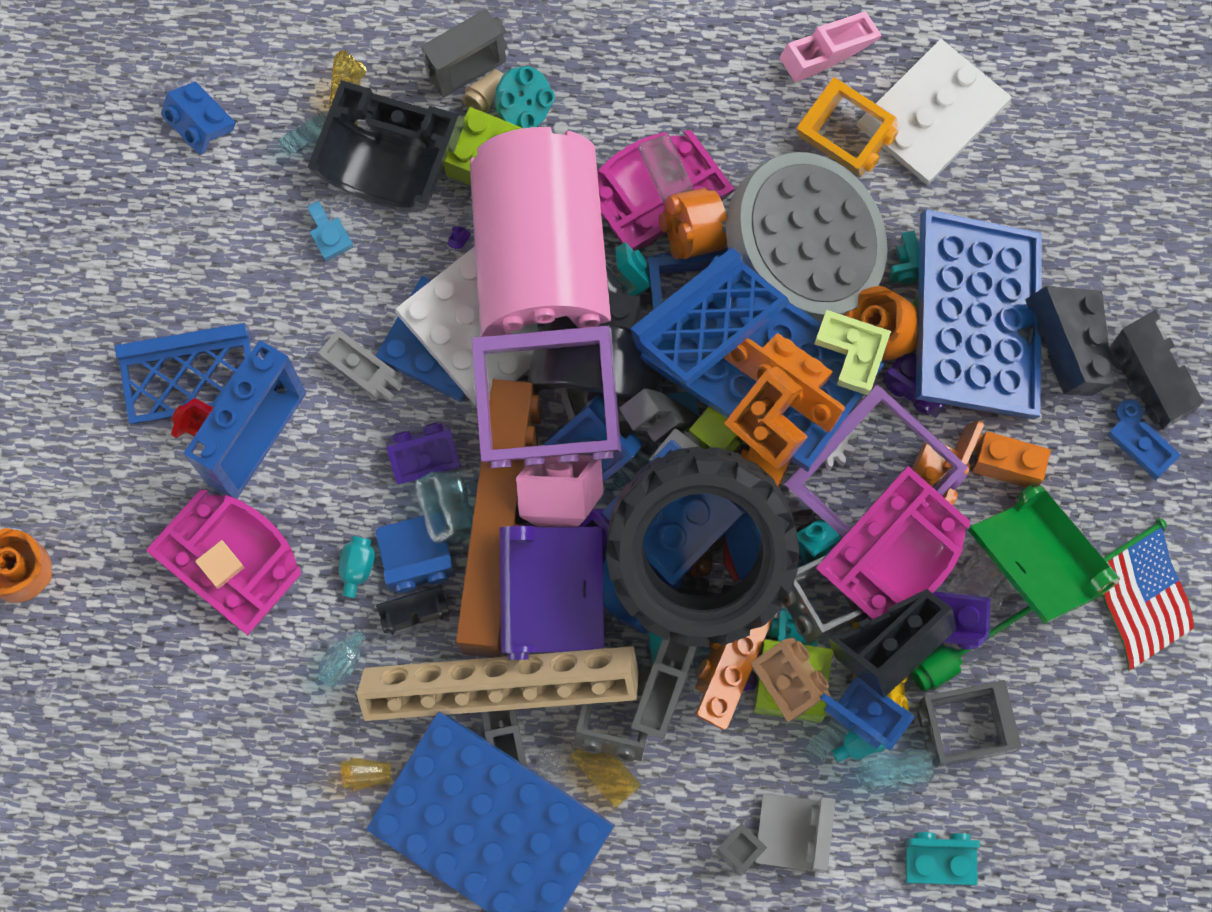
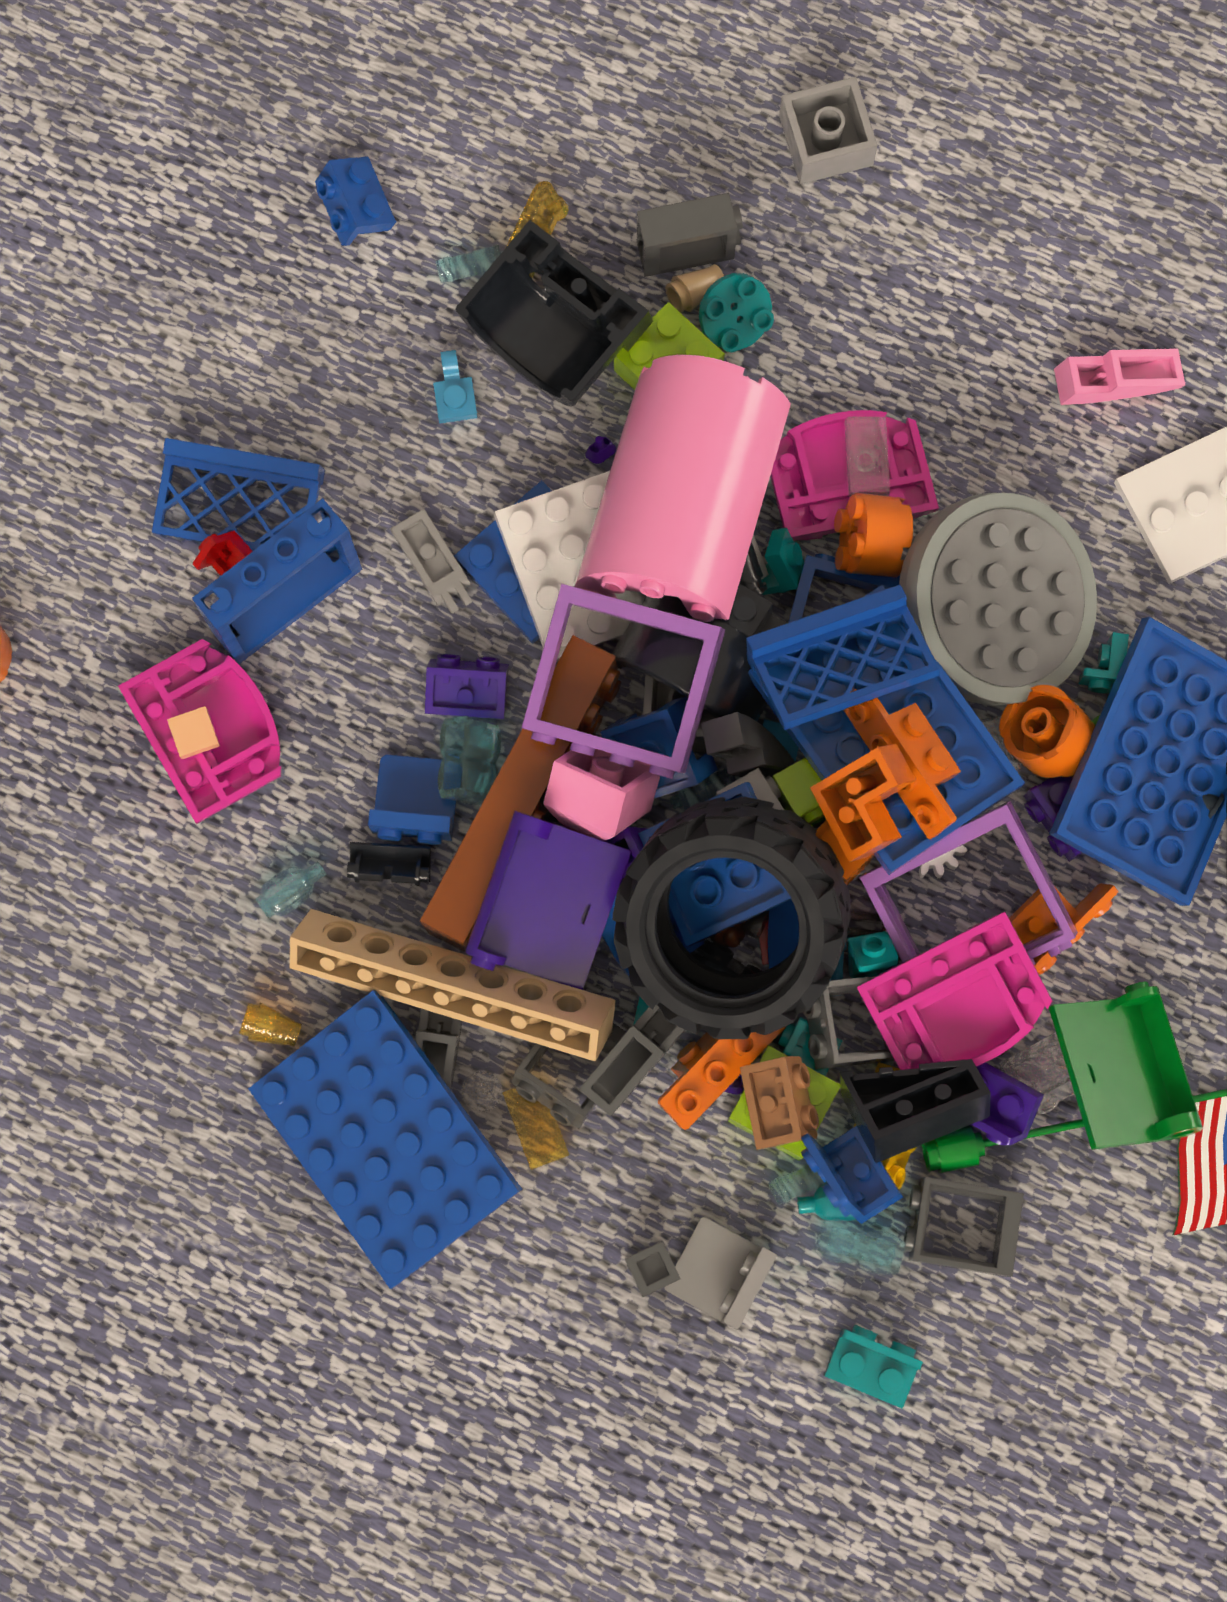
camera: 20 degrees right, 5 degrees up
(355, 564) = (345, 787): teal plant -> none
(821, 111) = (1078, 451): light orange window -> none
(860, 342) = (1006, 749): yellowish green plate -> none
(1011, 460) = (1134, 944): orange brick -> none

